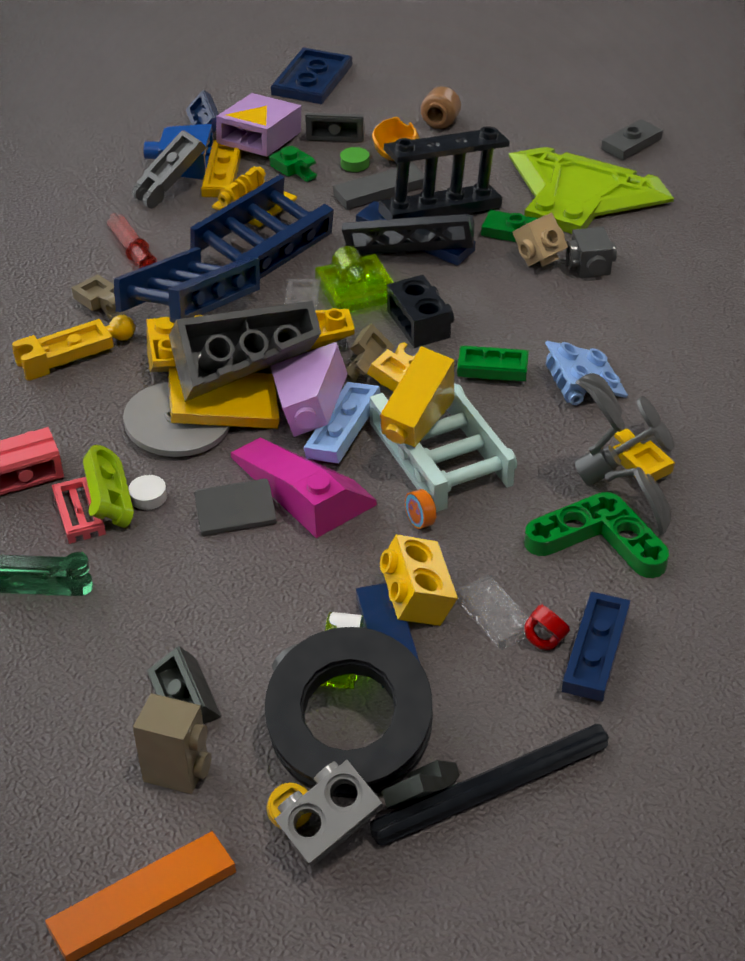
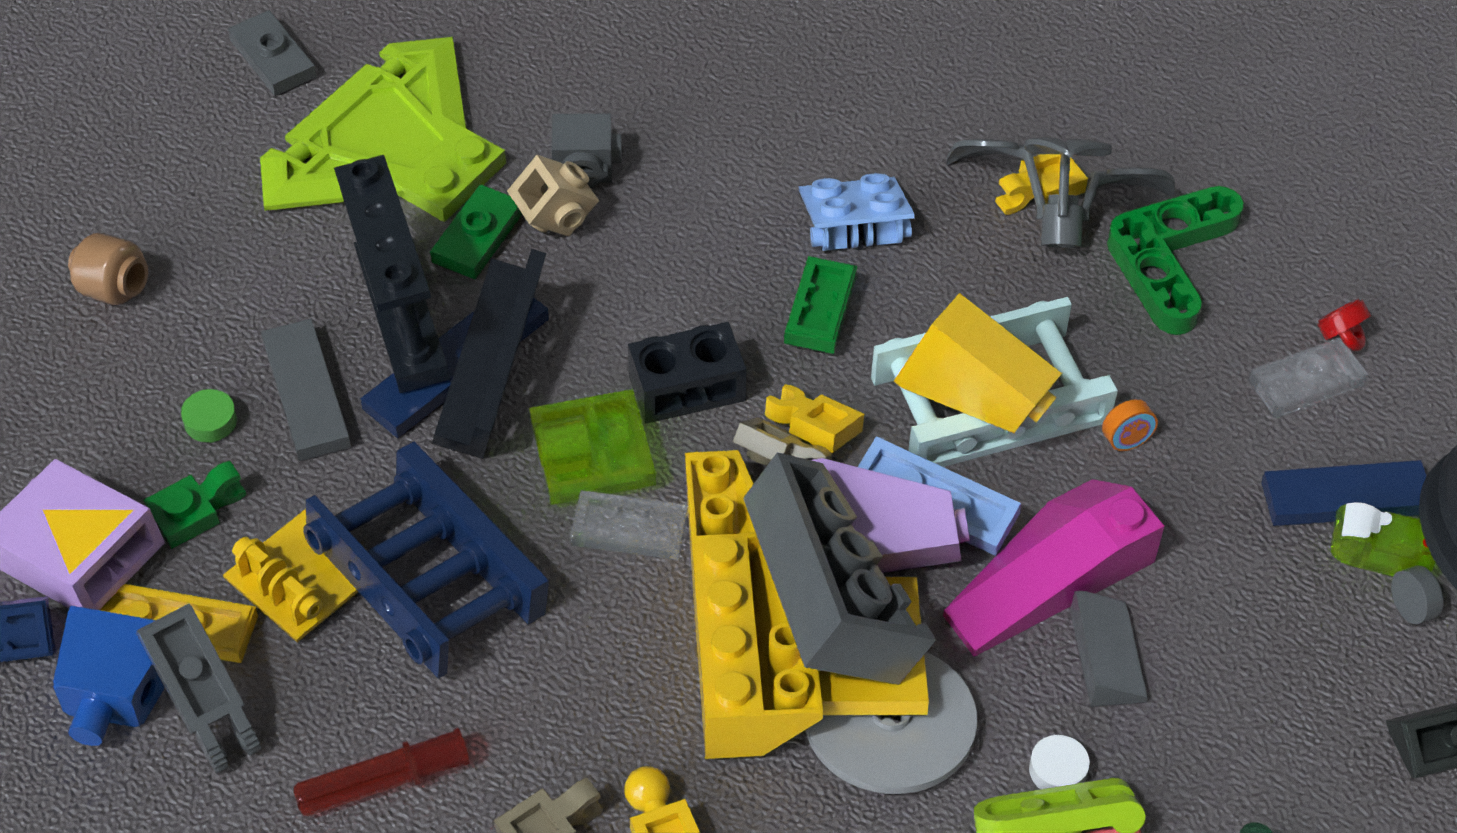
camera: 85 degrees left, 10 degrees up
(187, 284) = (616, 605): dark blue fence -> none
(335, 127) = (108, 429): dark grey slope -> none
(390, 131) = (196, 340): light orange hair -> none
(418, 580) = (1280, 437): yellow brick -> none
(596, 646) = (1380, 284): dark blue plate -> none

